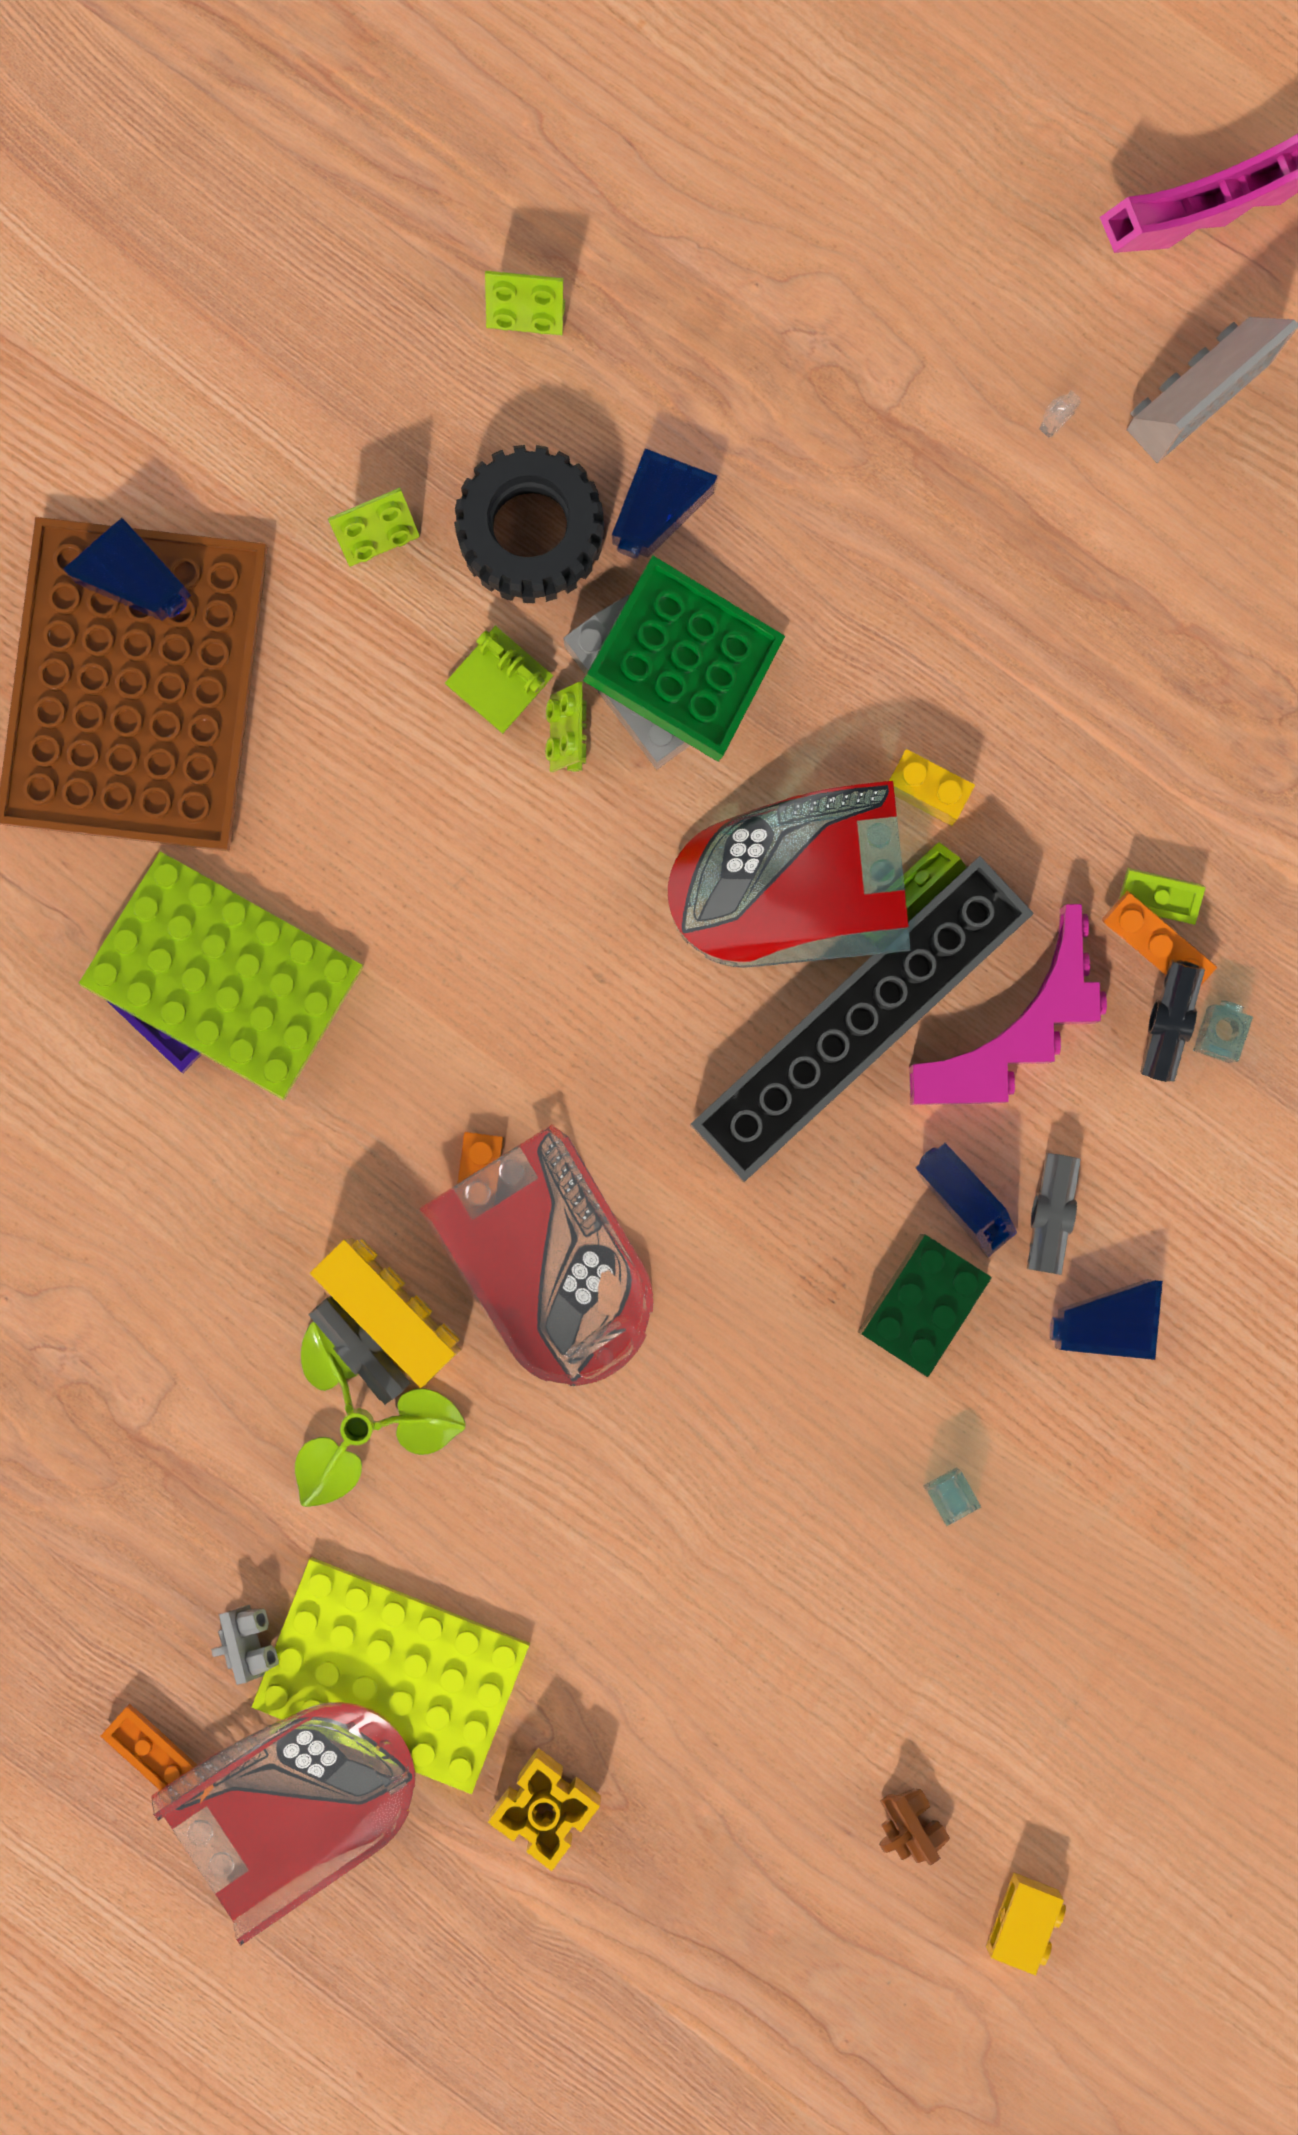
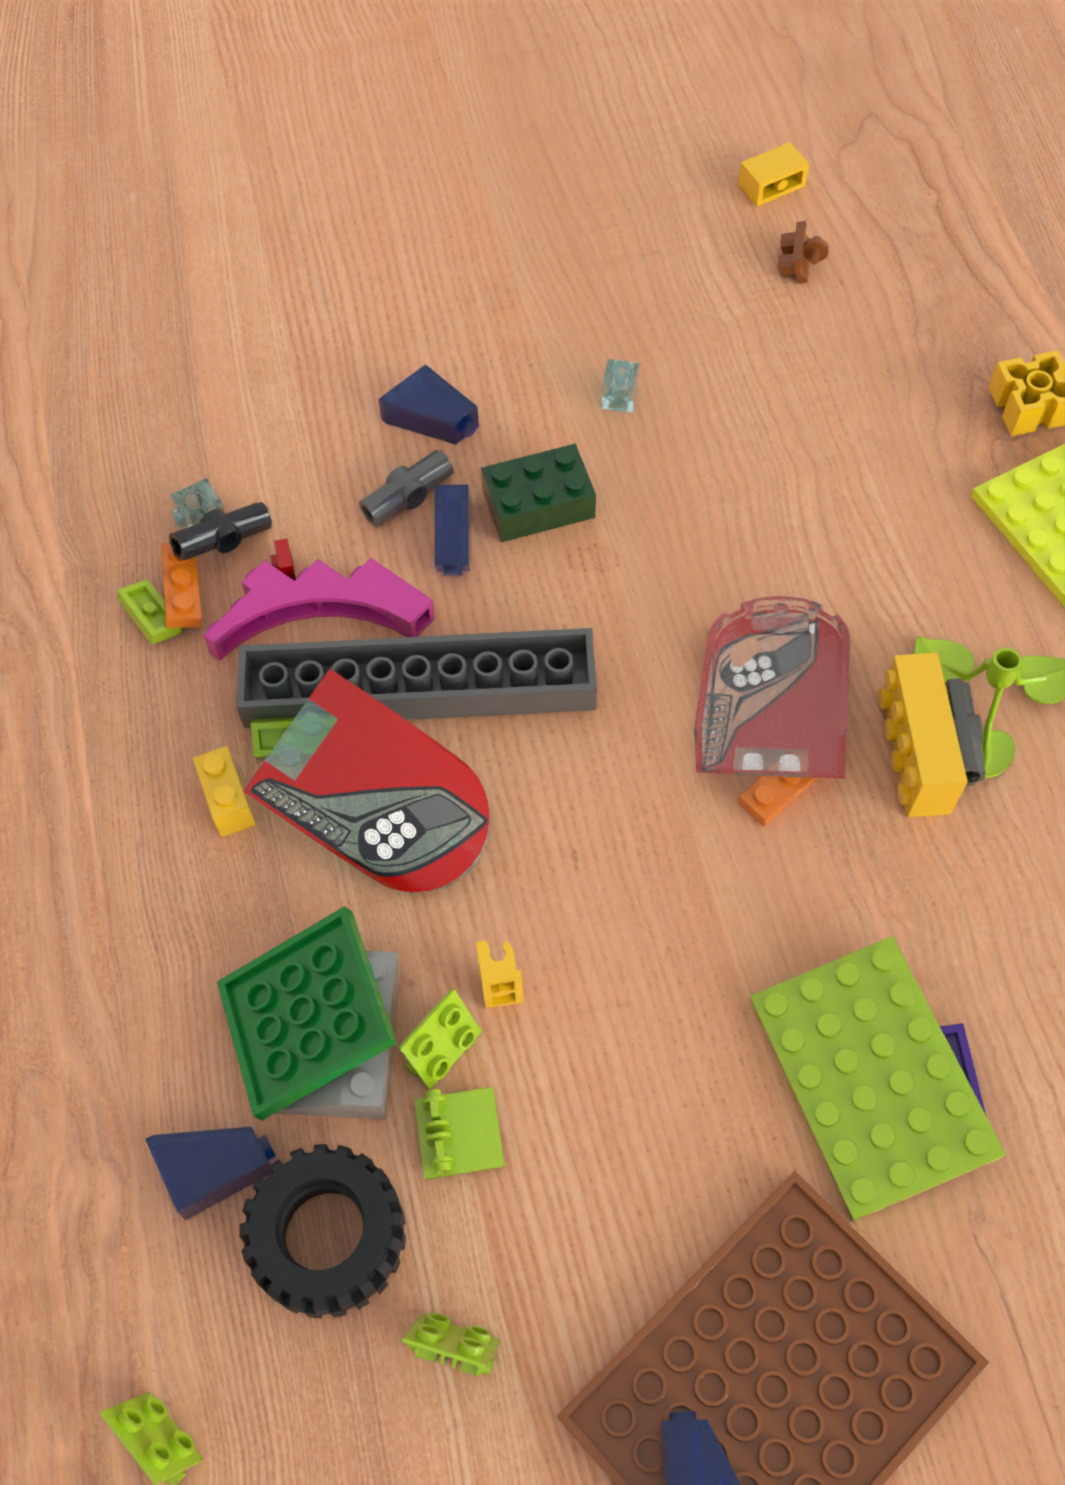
camera: 140 degrees left, 25 degrees down
(560, 808) = (499, 978): none -> yellow hinge
(1089, 1041) = (283, 558): none -> red plate

